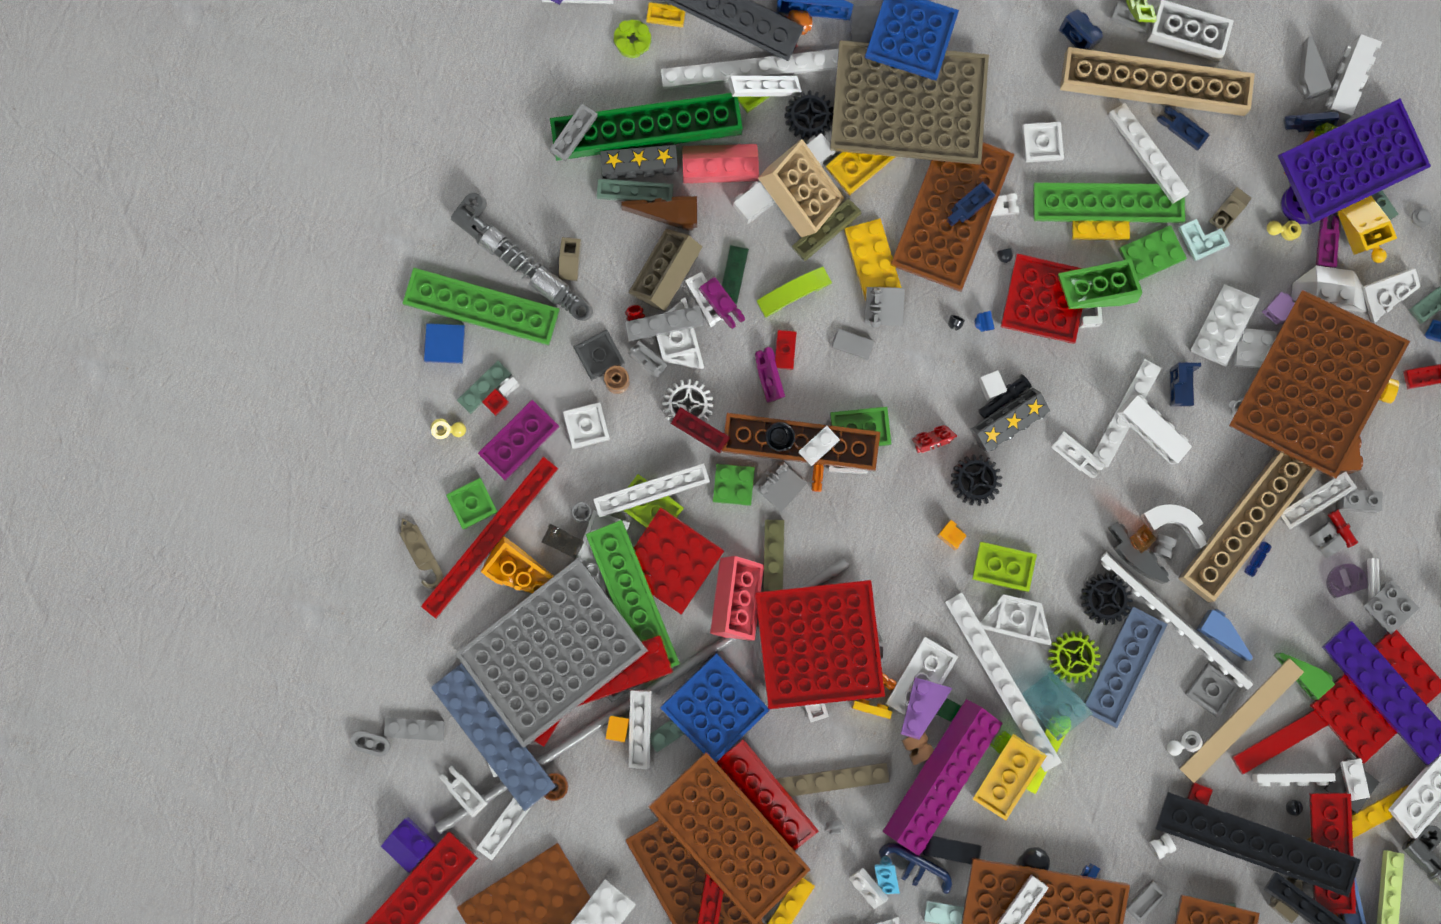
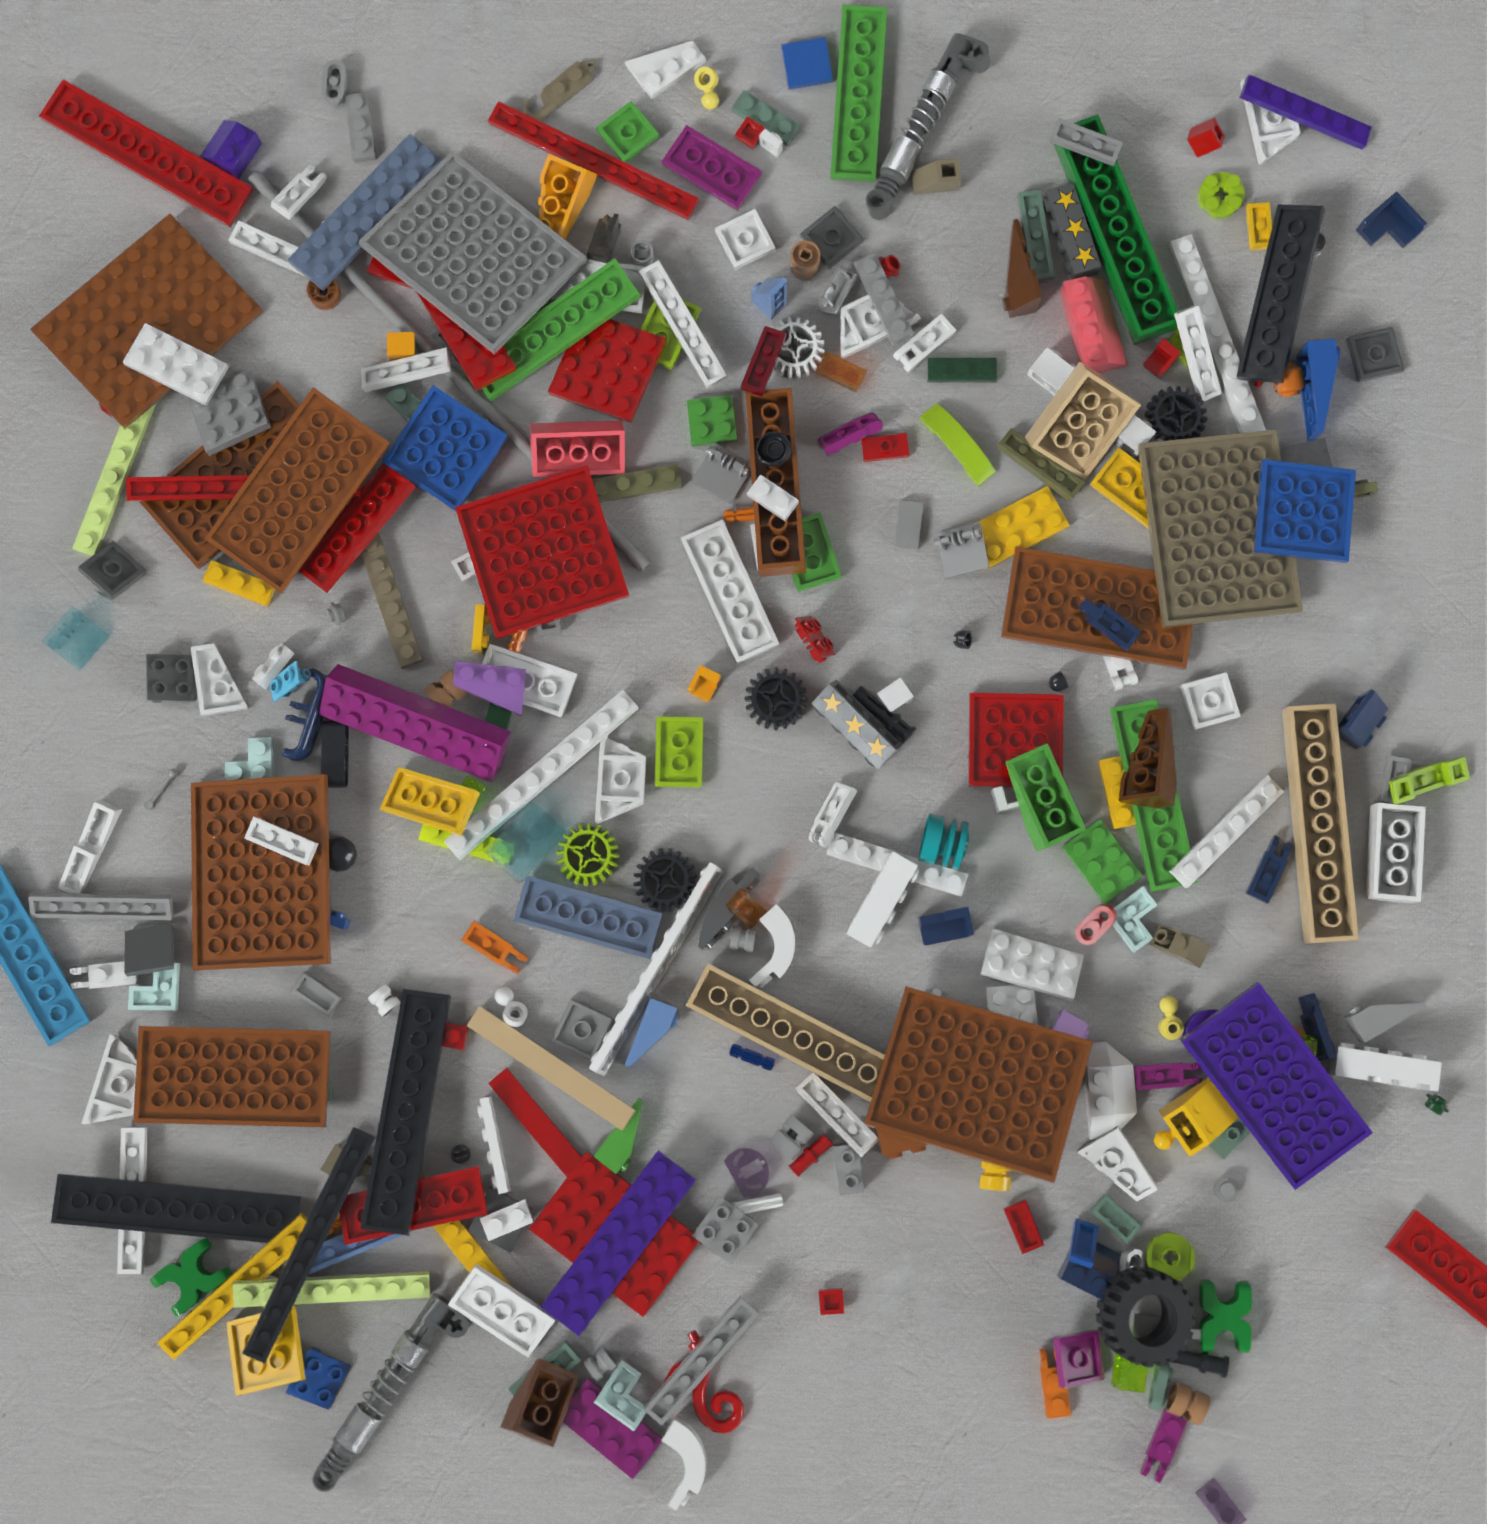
camera: 90 degrees right, 0 degrees up
(420, 461) = (665, 67): none -> white wing
(583, 39) = (1205, 137): none -> red panel
(641, 414) = (770, 296): none -> medium blue slope
(647, 883) = (231, 414): none -> light grey plate
(665, 269) = (949, 289): dark tan slope -> none
(715, 371) = (841, 371): none -> clear orange plate
(721, 302) = (925, 357): magenta hinge -> none
(759, 115) = (1162, 358): none -> red panel
(880, 499) = (729, 591): none -> white plate
(984, 321) = (970, 671): blue plate -> none
(1089, 197) = (1152, 770): none -> reddish brown wedge
(1118, 371) = (943, 841): none -> teal wheel
(1133, 749) = (492, 946): none -> orange hinge
(1202, 267) = (1096, 923): none -> plate
(1386, 47) = (1436, 1104): none -> dark green plate

